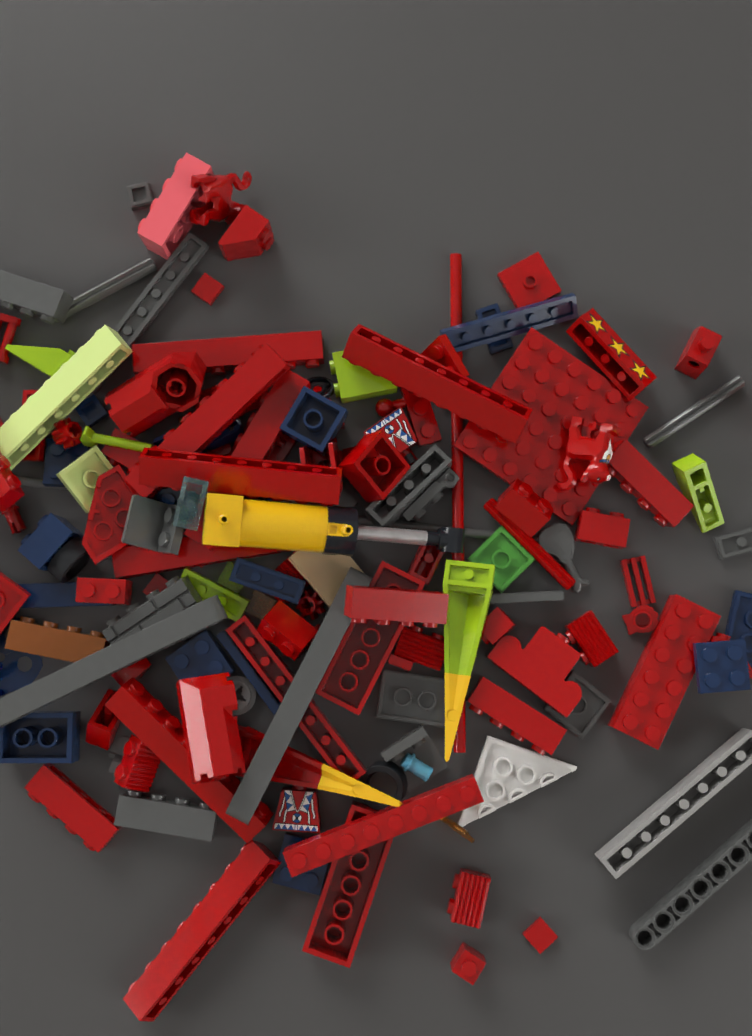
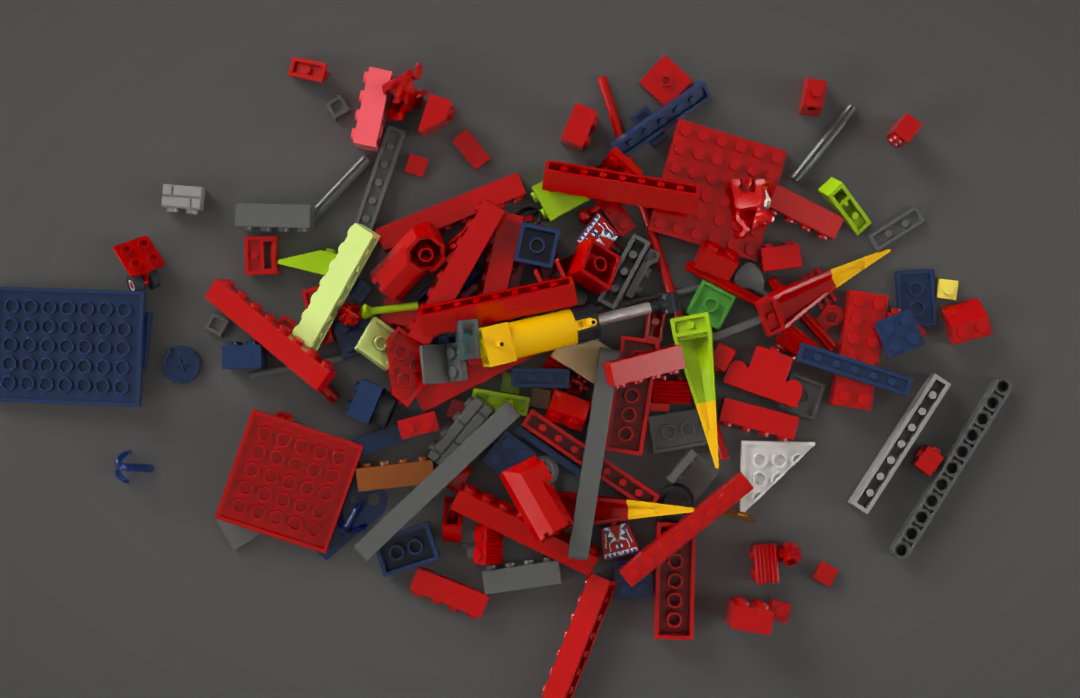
camera: 20 degrees left, 5 degrees up
(120, 142) = (308, 70): none -> red plate
(277, 290) = (471, 149): none -> red tile
(410, 301) = (579, 126): none -> red brick
(416, 767) = (695, 480): medium azure pin -> none
(429, 961) = (749, 615): none -> red brick
(503, 896) = (789, 554): none -> red gear
(598, 586) = (789, 303): none -> red plate
(608, 605) = (808, 320): none -> red axle
(611, 354) = (746, 119): red brick -> none
(653, 693) = (854, 369): none -> dark blue tile
(709, 833) = (927, 459): none -> red brick

